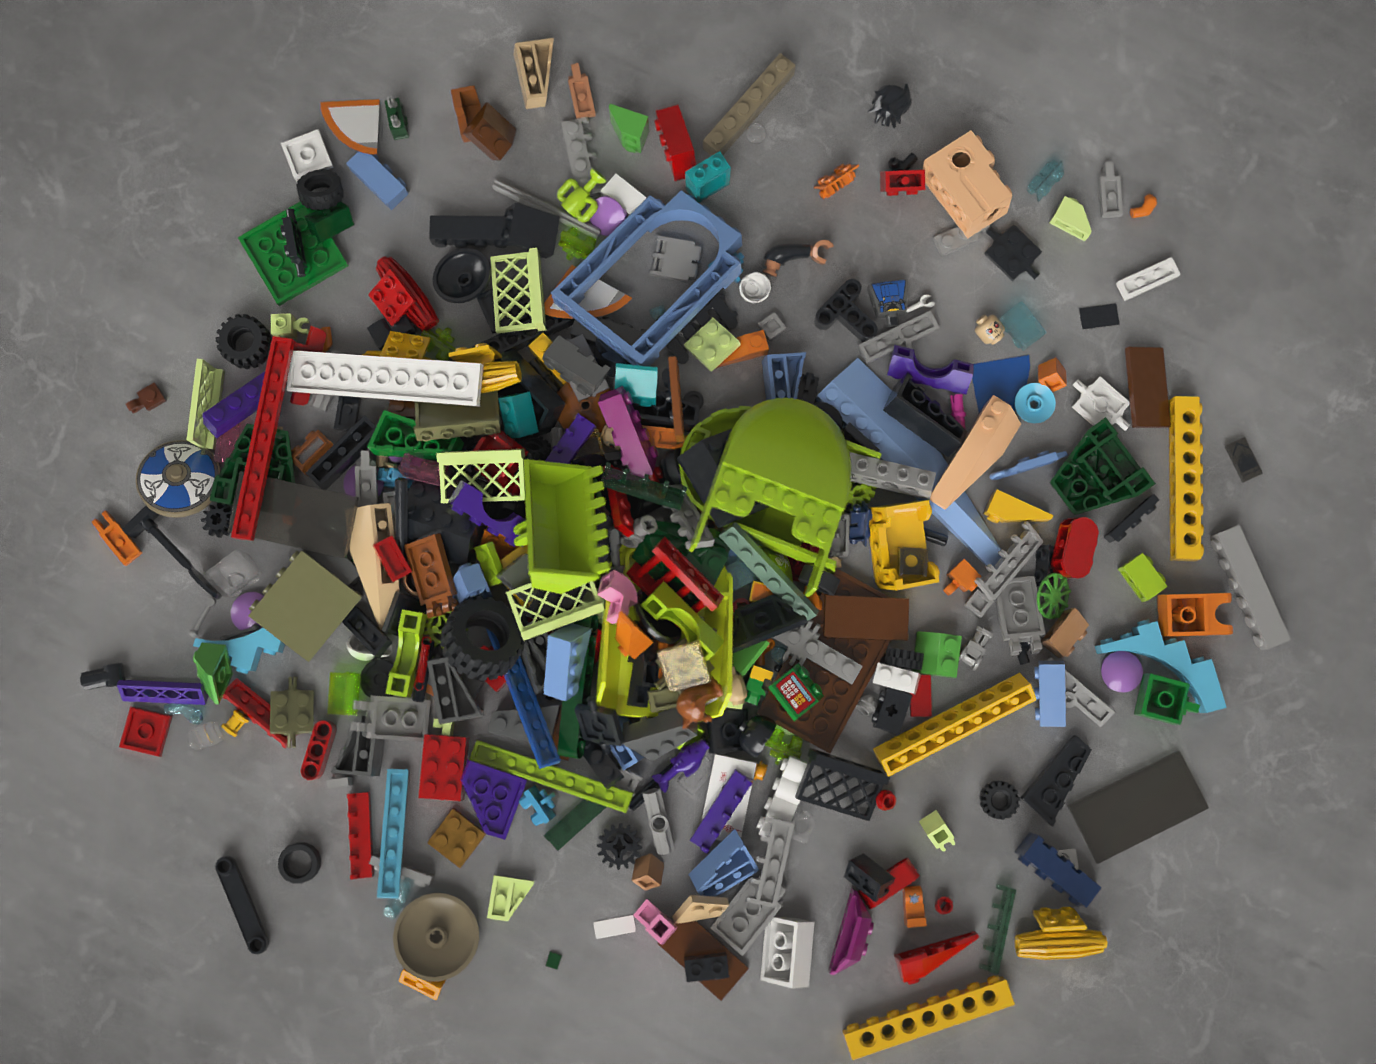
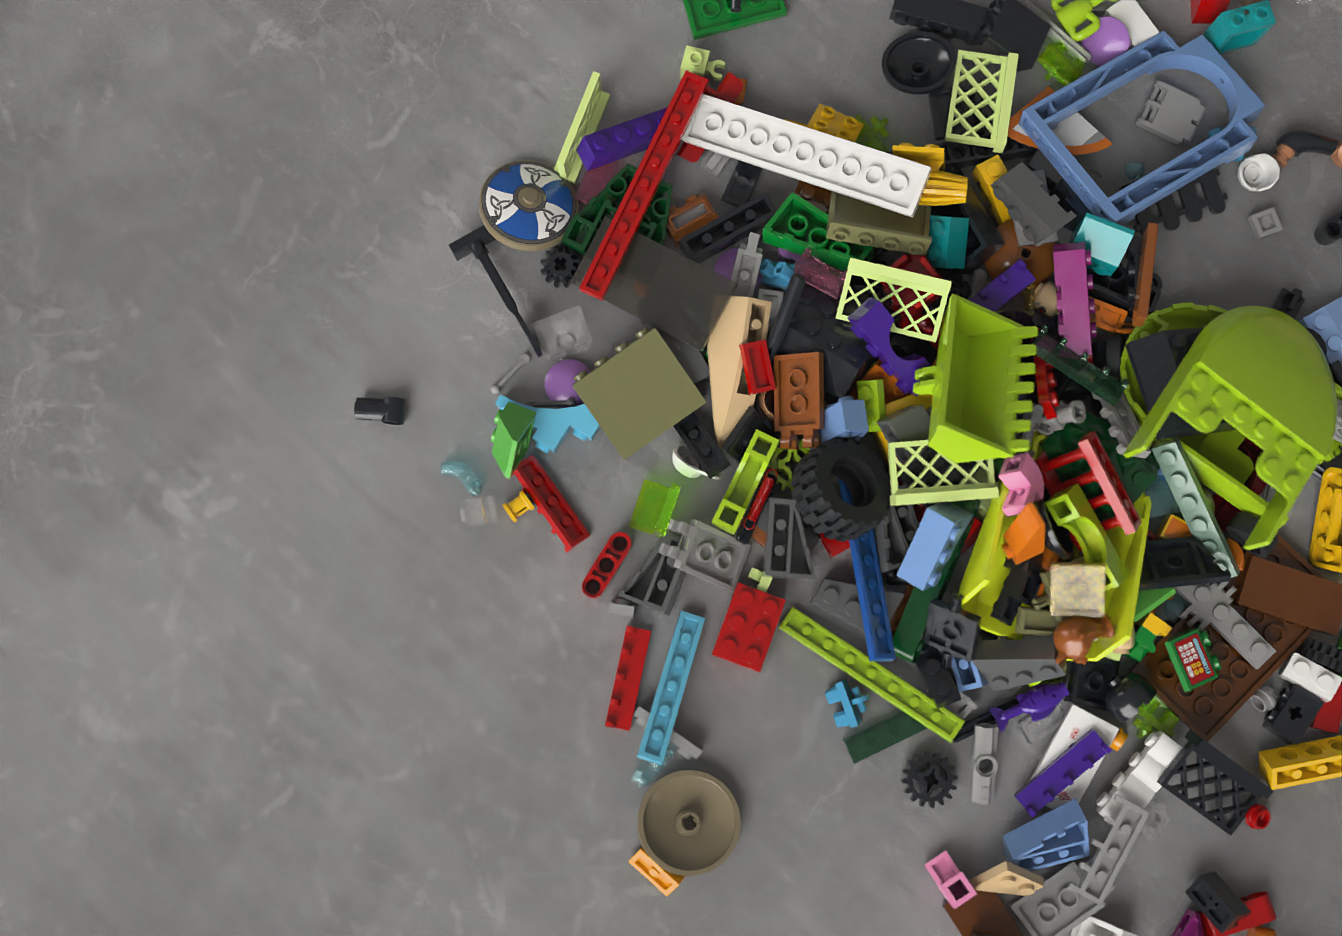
camera: 15 degrees right, 0 degrees up
(117, 539) = (438, 256): orange hinge -> none
(145, 731) = (411, 486): red tile -> none
(148, 397) = (516, 103): copper plate -> none
(162, 692) = (446, 446): dark purple fence -> none
(232, 330) = (642, 50): black tyre -> none
(242, 905) = (470, 719): black piece -> none
(283, 860) = (531, 695): black tyre -> none
(292, 712) = (588, 512): olive plate -> none
(375, 678) = (697, 501): black tile -> none
(382, 328) = (807, 100): black brick -> none
(382, 461) = (768, 253): tan hand -> none
(401, 295) = (841, 67): red plate -> none
(456, 838) = (739, 714): pearl gold plate -> none
(492, 796) = (797, 678): dark purple plate -> none
(506, 896) = (781, 799): yellowish green wing -> none
(553, 960) = (814, 890): dark green window -> none
(614, 926) = (896, 871): white sticker -> none
(648, 872) = (954, 819): medium nougat panel -> none
(712, 344) = (1192, 224): yellowish green plate -> none
(752, 346) = (1218, 239): orange slope -> none
(782, 374) = (1265, 281): medium blue wedge -> none
(861, 515) = (1319, 481): dark blue hinge -> none
(937, 830) = (1312, 869): yellowish green brick -> none

